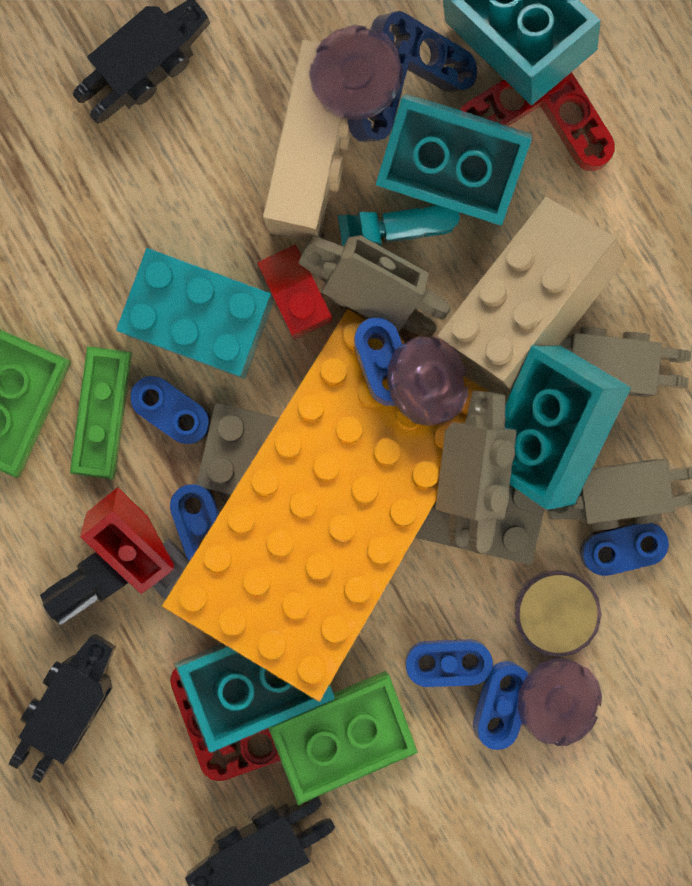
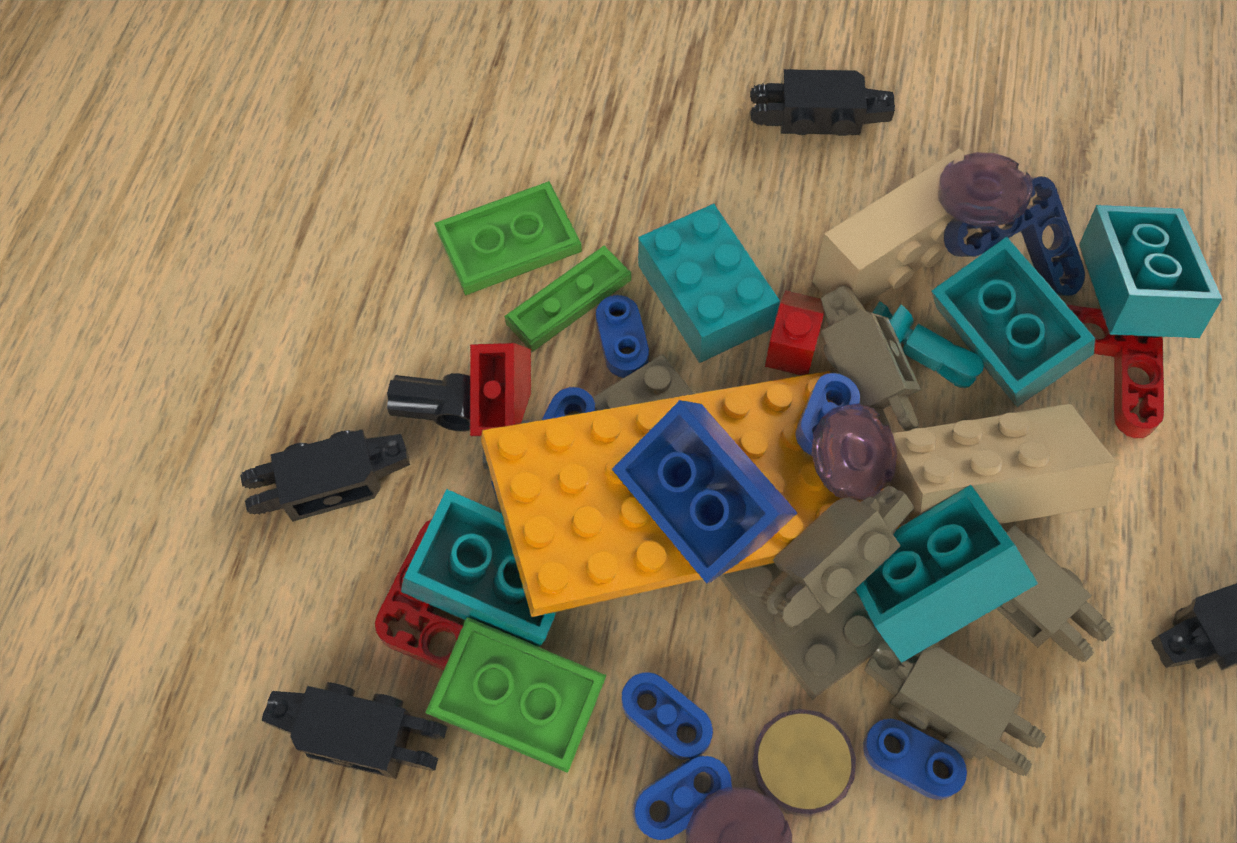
camera: 45 degrees right, 25 degrees down
(355, 512) = (703, 490): none -> blue slope

